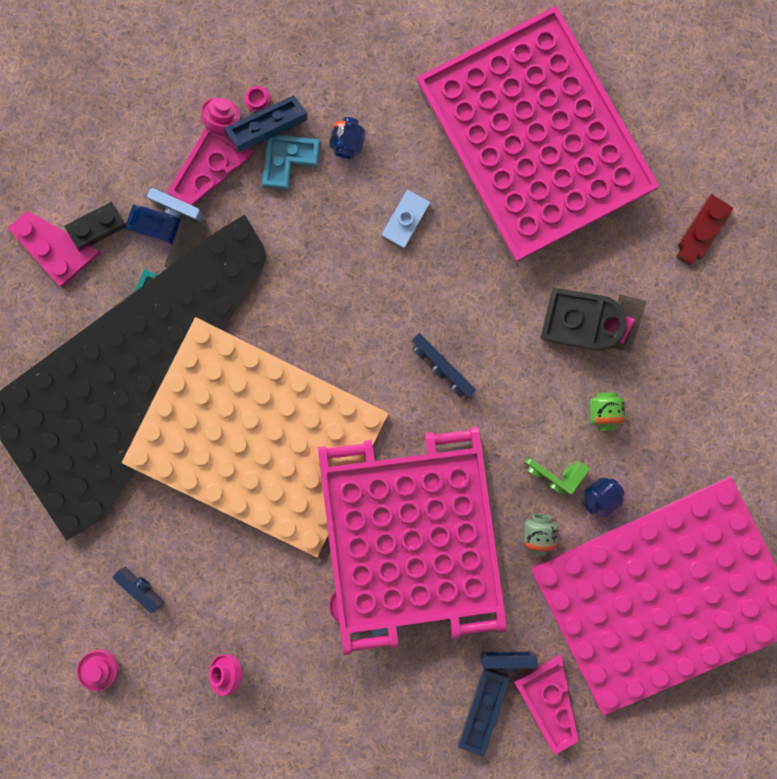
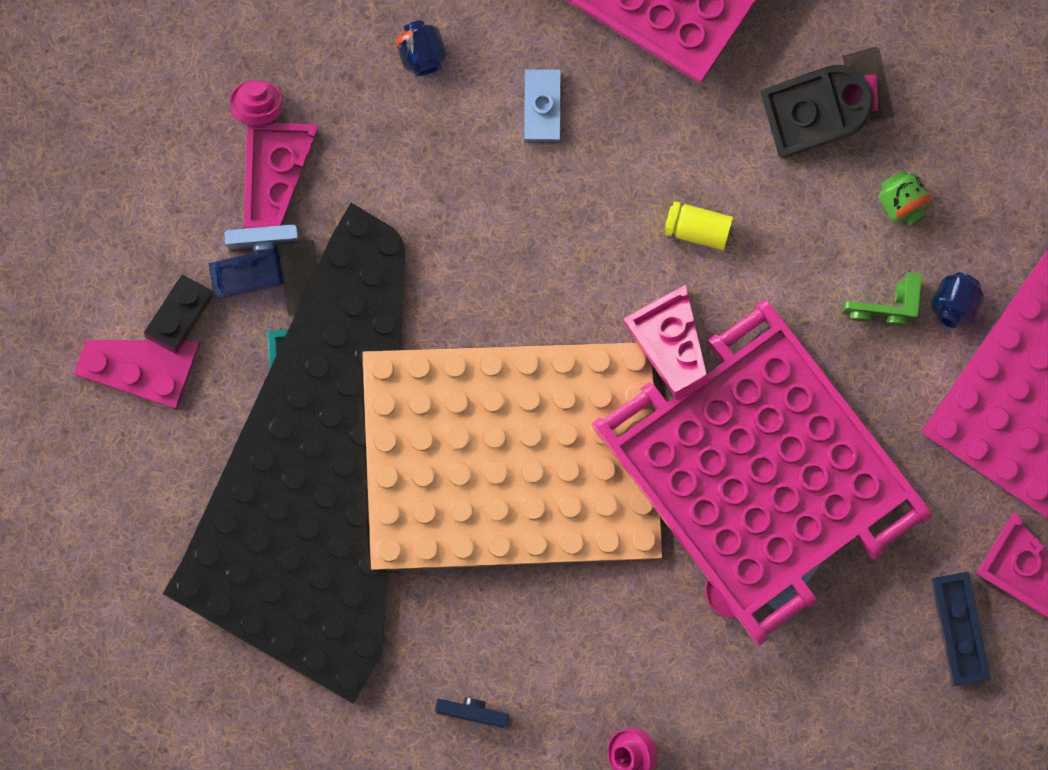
camera: 30 degrees left, 5 degrees down
(257, 99) = (287, 60): dark pink plate -> none
(266, 124) = (316, 83): dark blue plate -> none
(282, 154) = (352, 109): dark azure tile -> none
(400, 421) = (670, 341): none -> wing
(442, 367) = (683, 252): dark blue plate -> none
(462, 354) = (698, 225): none -> neon yellow piece
(509, 660) = (955, 553): dark blue plate -> none
(540, 534) = (908, 384): sand green head -> none

